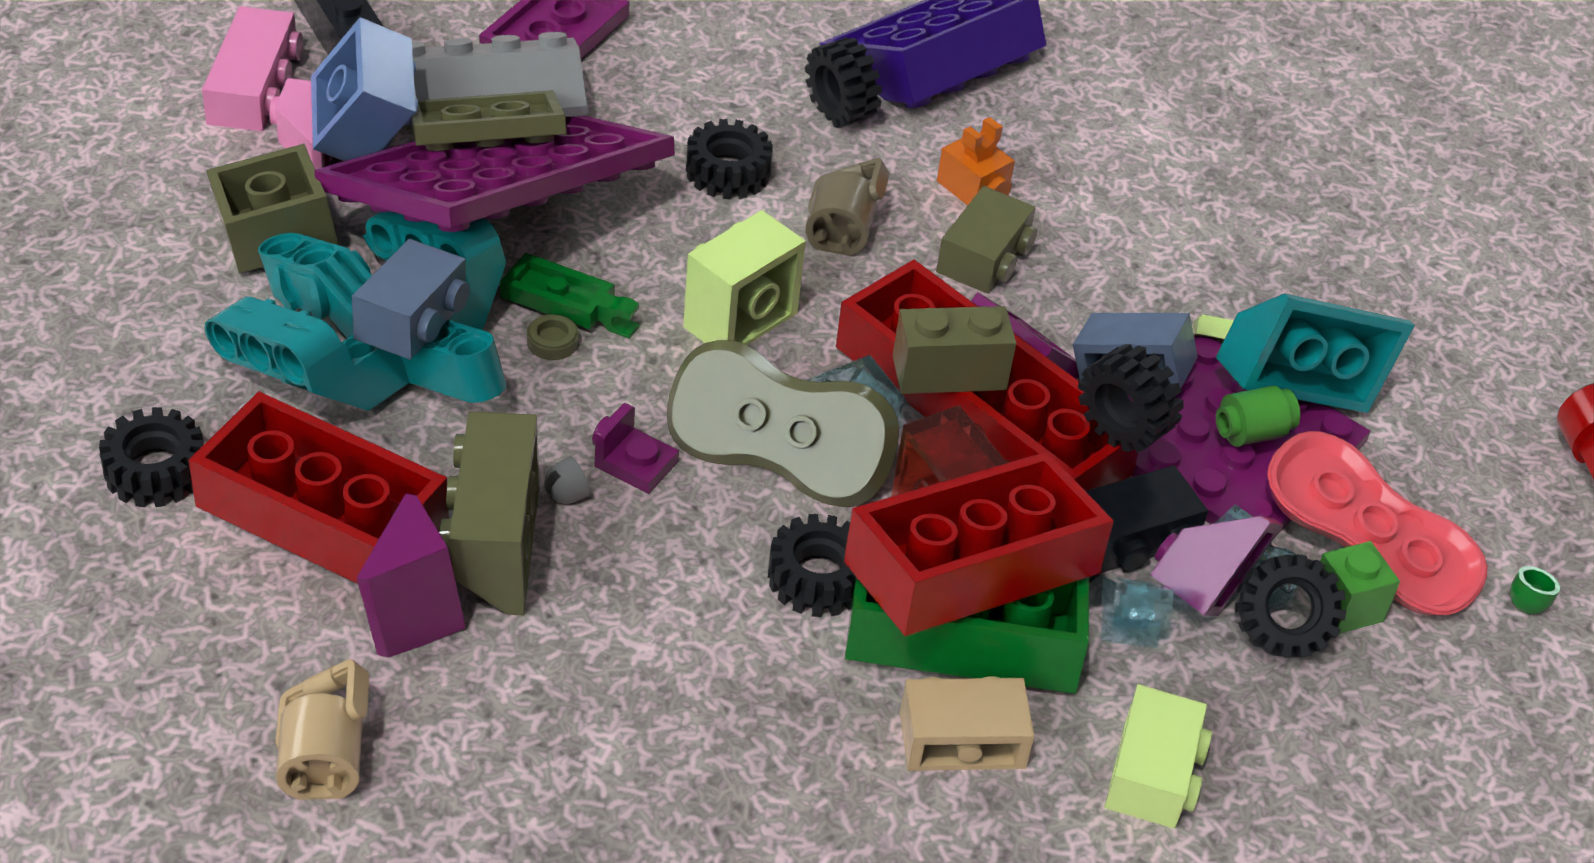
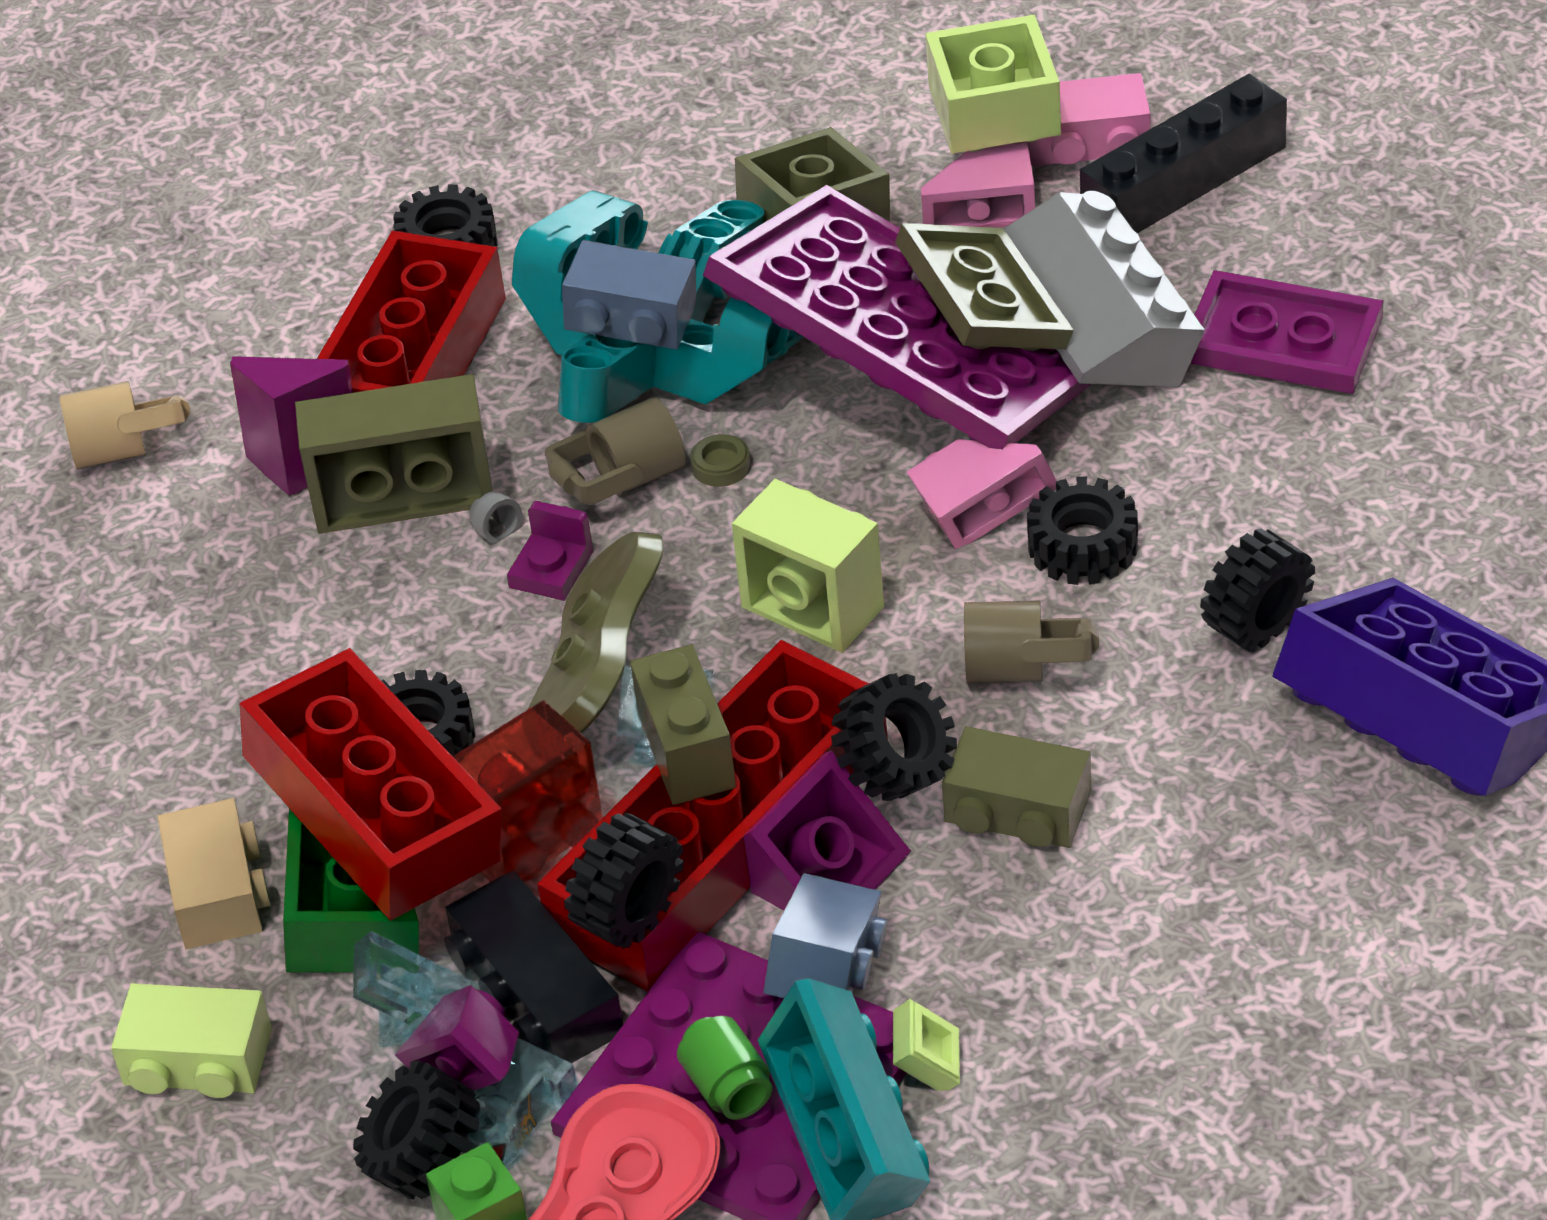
camera: 90 degrees right, 0 degrees up
(242, 57) = (993, 84): none -> yellowish green brick
(363, 92) = (976, 178): medium blue brick -> none
(541, 378) = (626, 449): none -> dark tan piece
(568, 294) = (783, 441): green plate -> none
(675, 193) = (978, 486): none -> bright pink slope
(964, 262) = (868, 747): none -> black tyre
(976, 163) = (1154, 755): orange brick -> none

